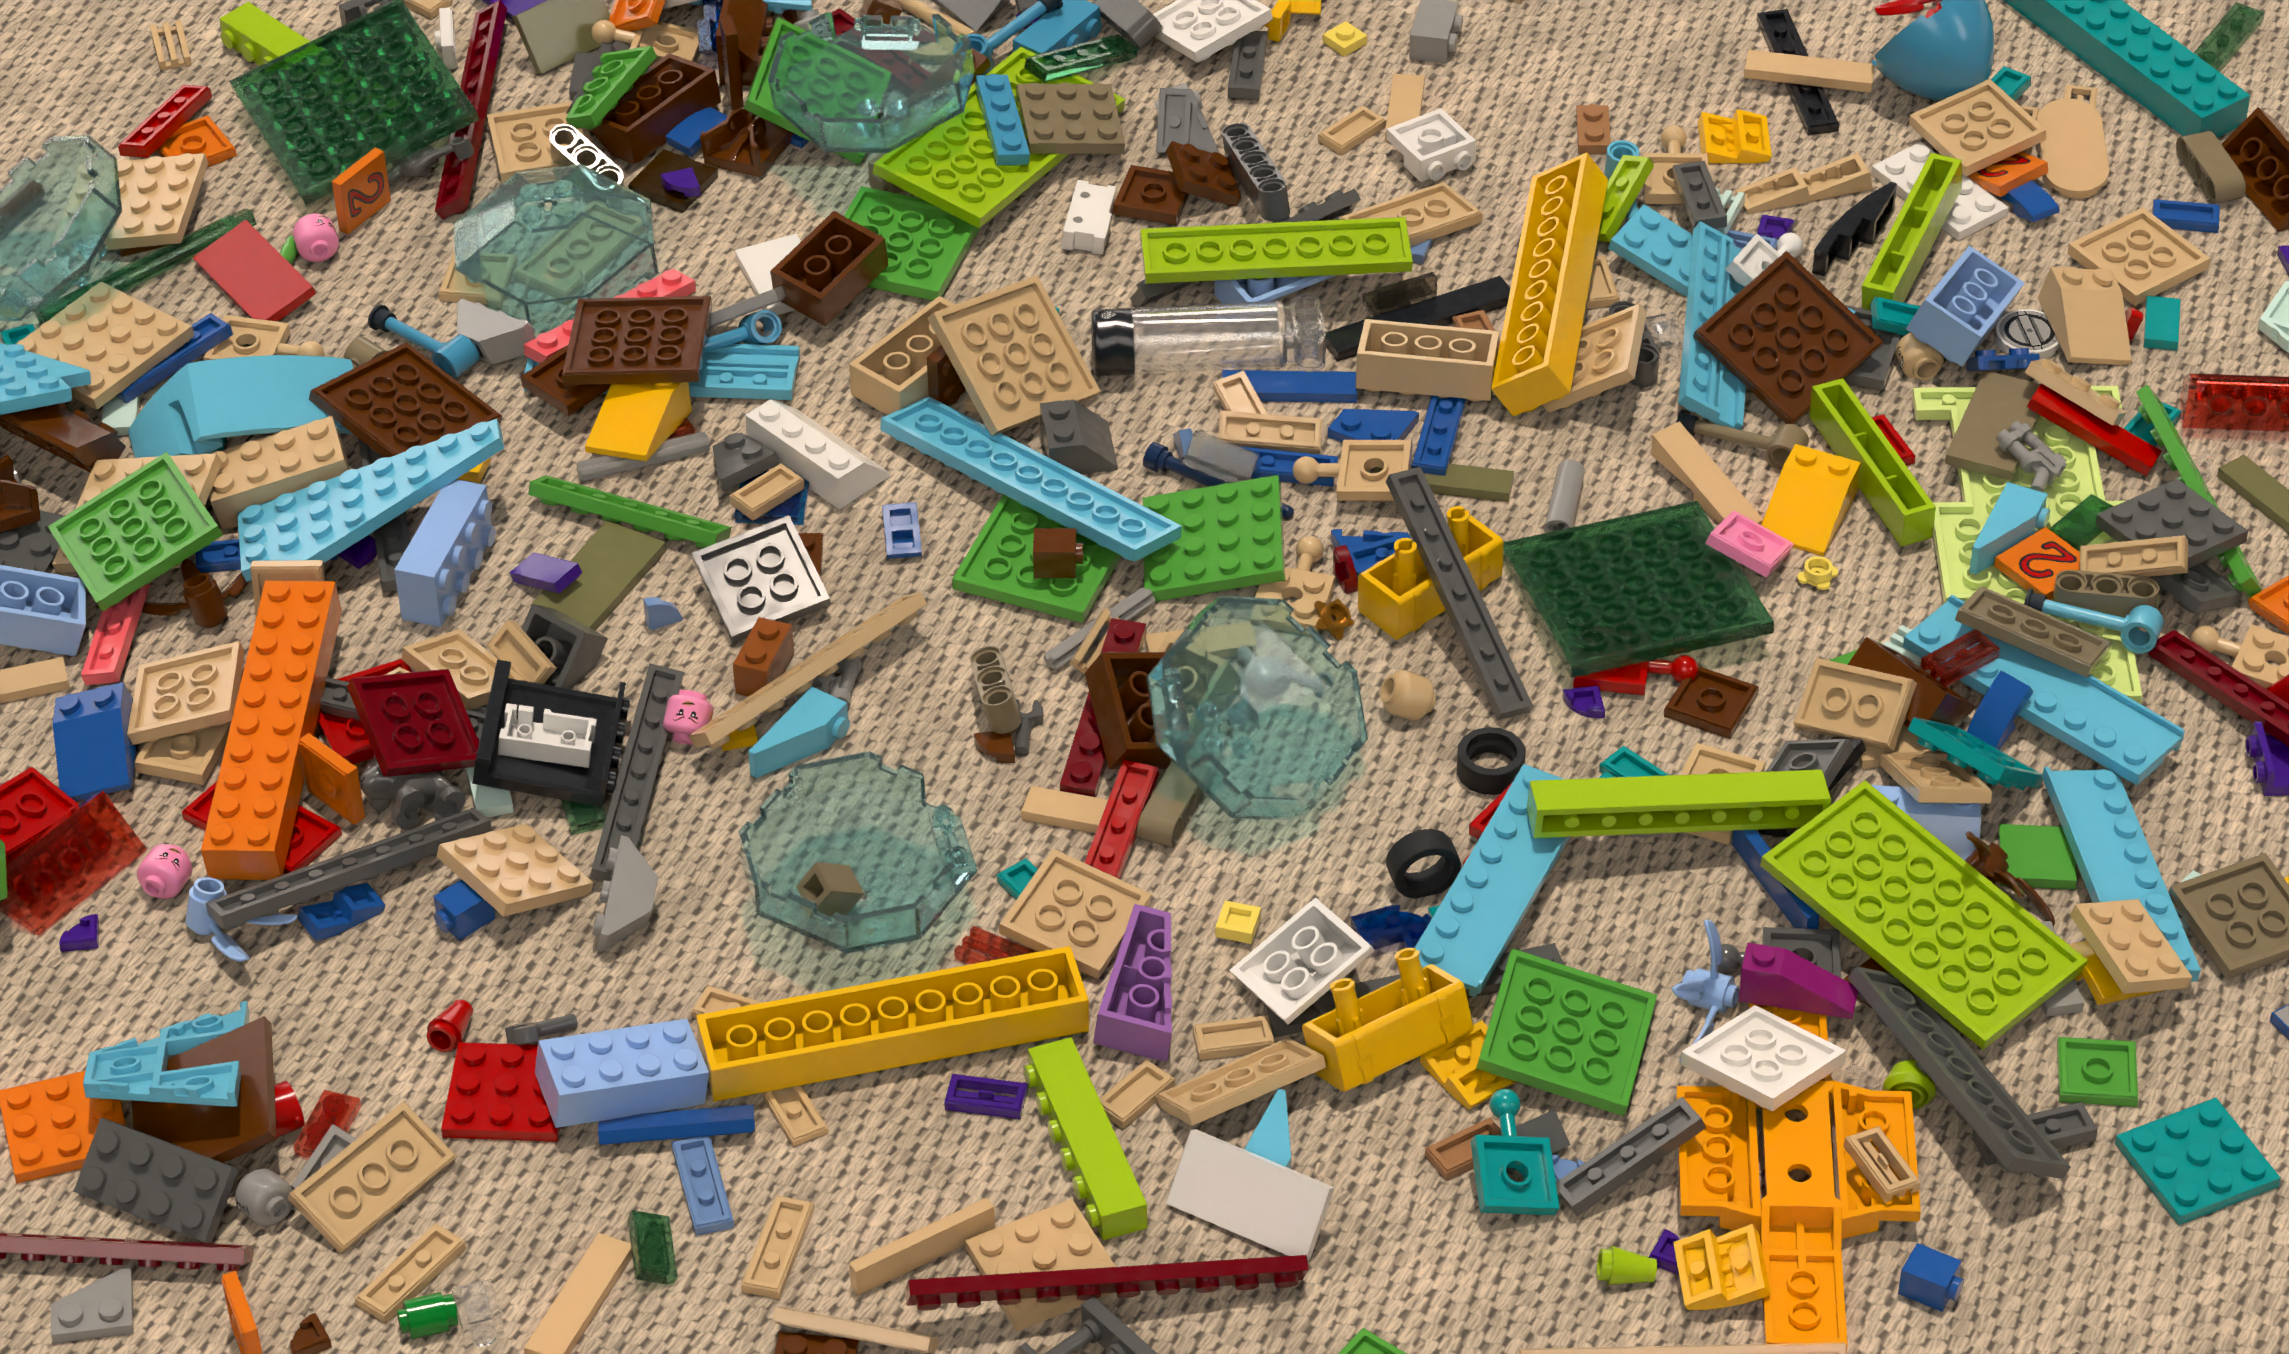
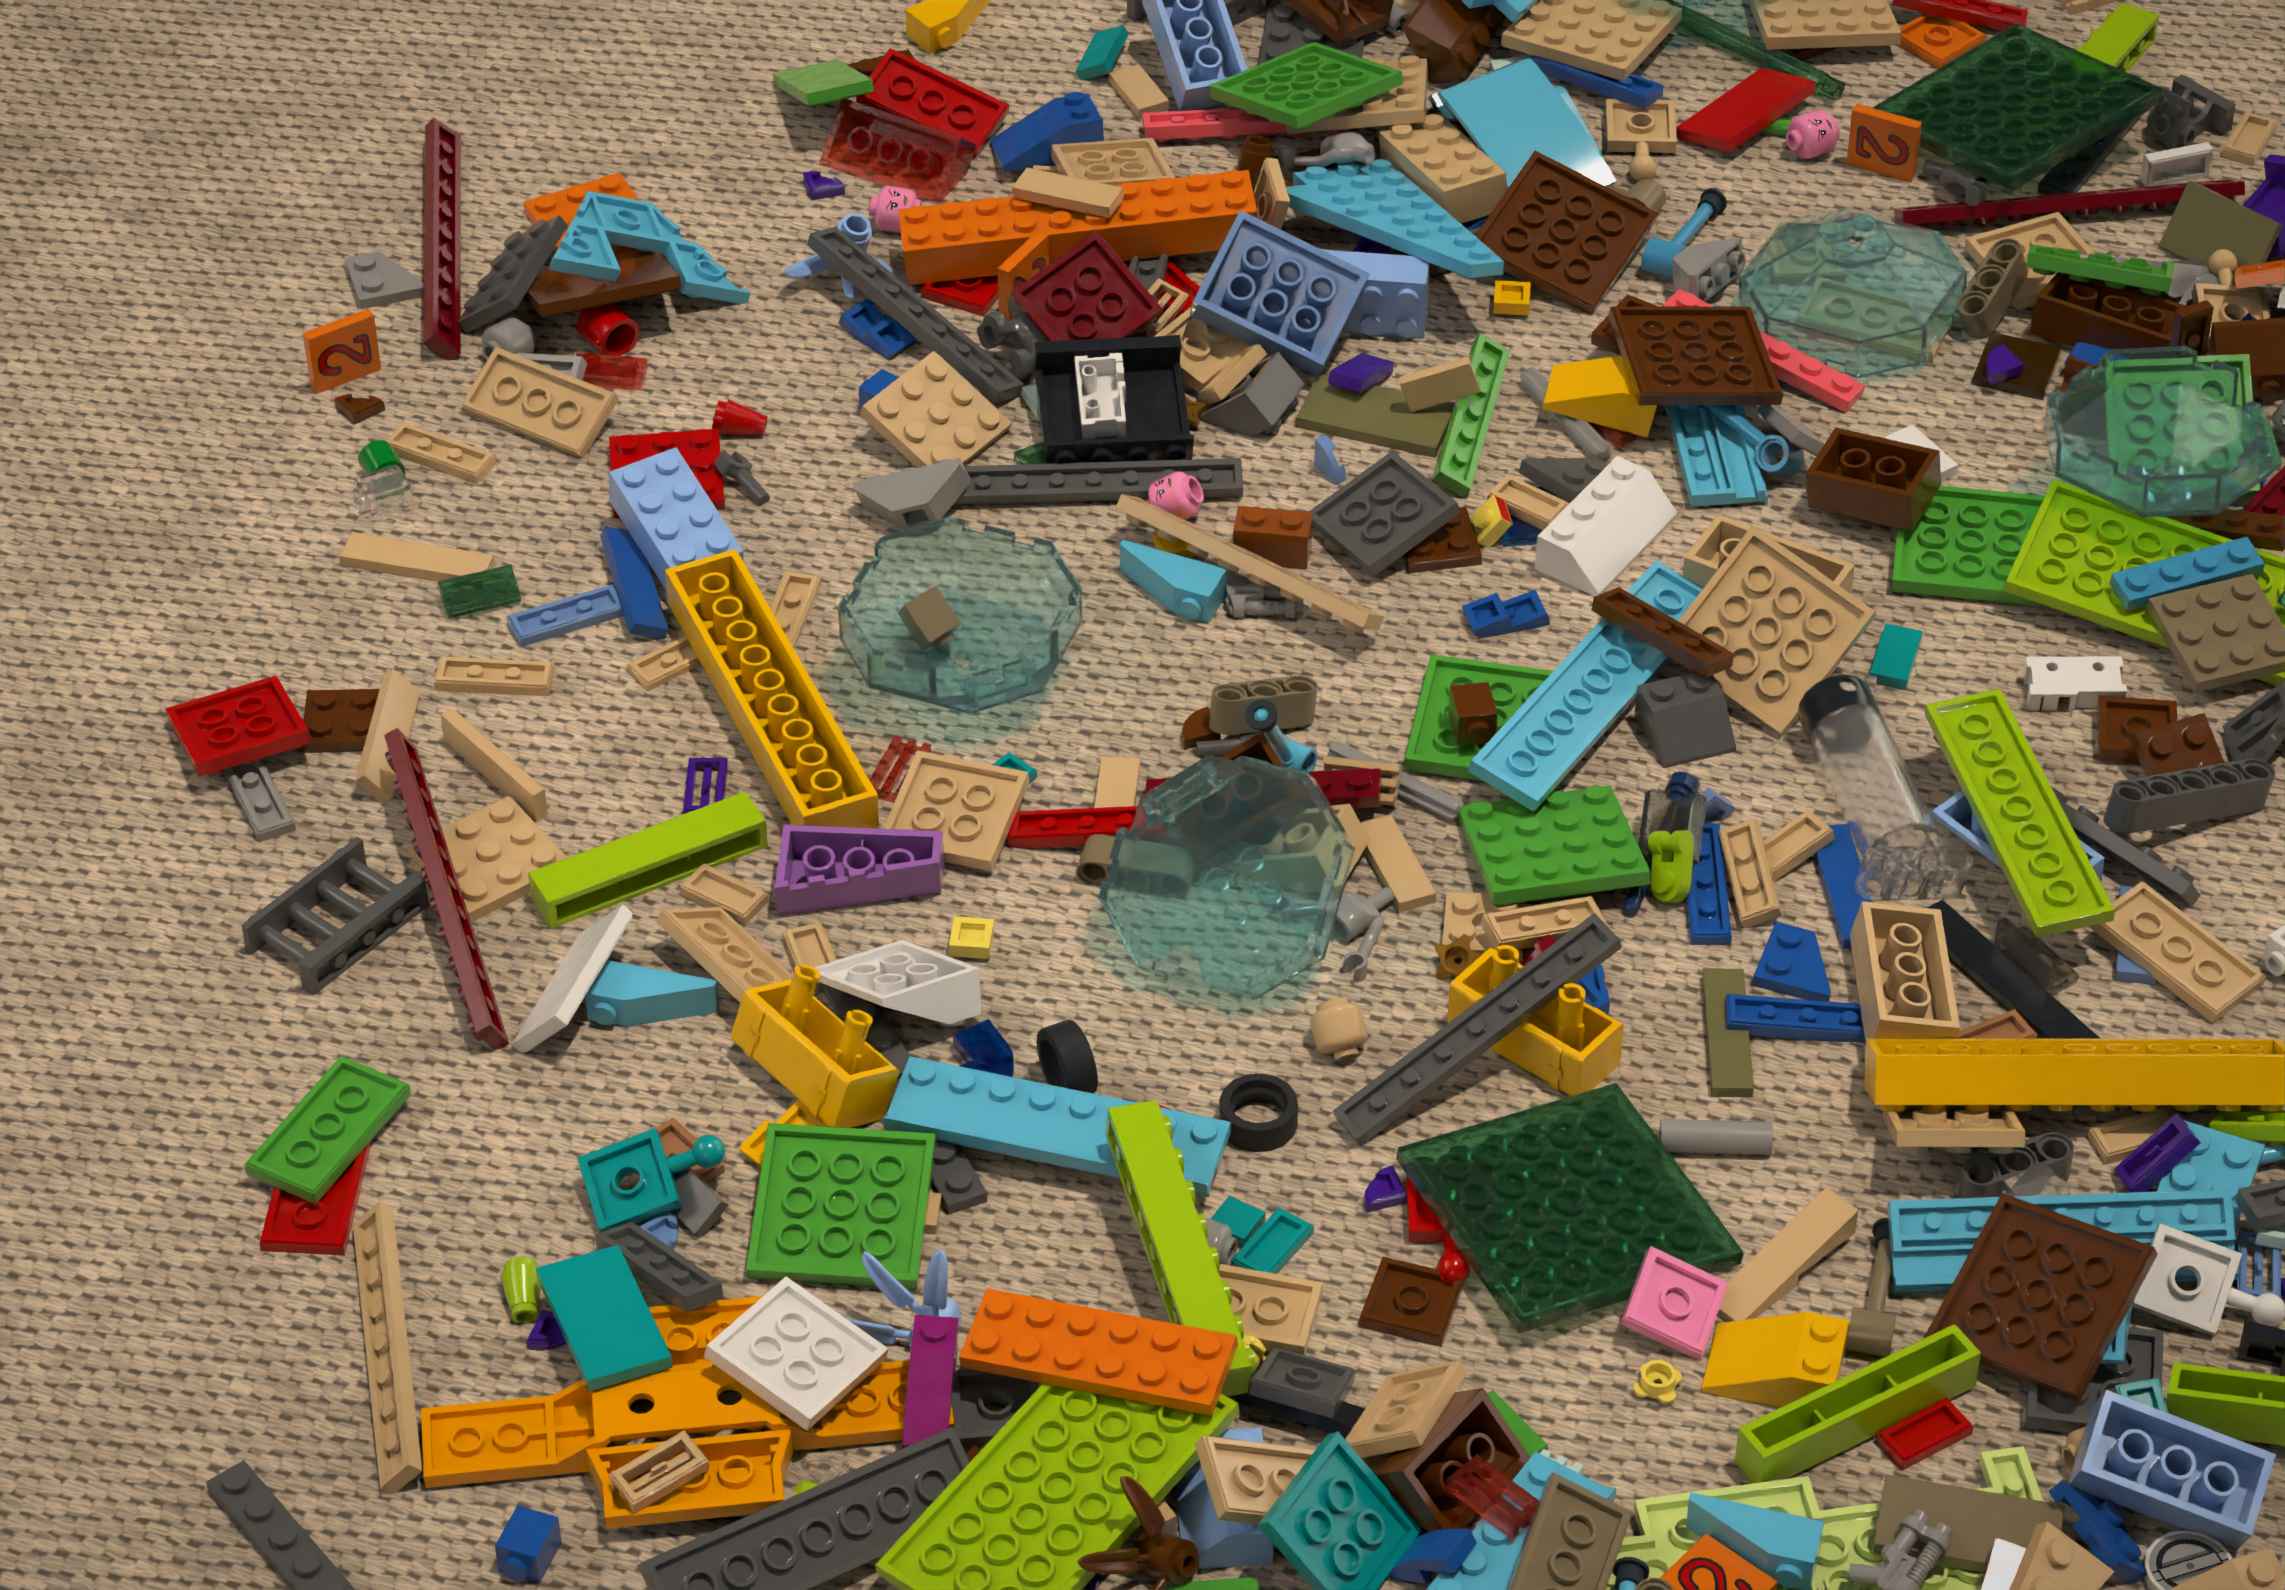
camera: 80 degrees right, 0 degrees up
(234, 527) = (1336, 149): none -> light grey piece
(254, 707) = (1068, 192): none -> tan tile
(459, 587) = (1279, 293): none -> medium blue slope
(605, 510) = (1439, 384): none -> tan tile
(778, 509) = (1491, 521): none -> light yellow plate
(1000, 415) = (1662, 632): none -> reddish brown plate
(1068, 680) = (1263, 717): none -> medium azure piece
(1269, 466) = (1671, 879): none -> lime plate
(1315, 560) = (1529, 924): none -> tan tile
(1352, 472) = (1680, 947): tan plate -> none
(1646, 290) = (2157, 1155): none -> dark purple tile
(1697, 1190) = (604, 1318): none -> teal tile
(1721, 1269) = (518, 1362): yellow slope -> none
(1799, 857) = (1099, 1351): none -> orange plate

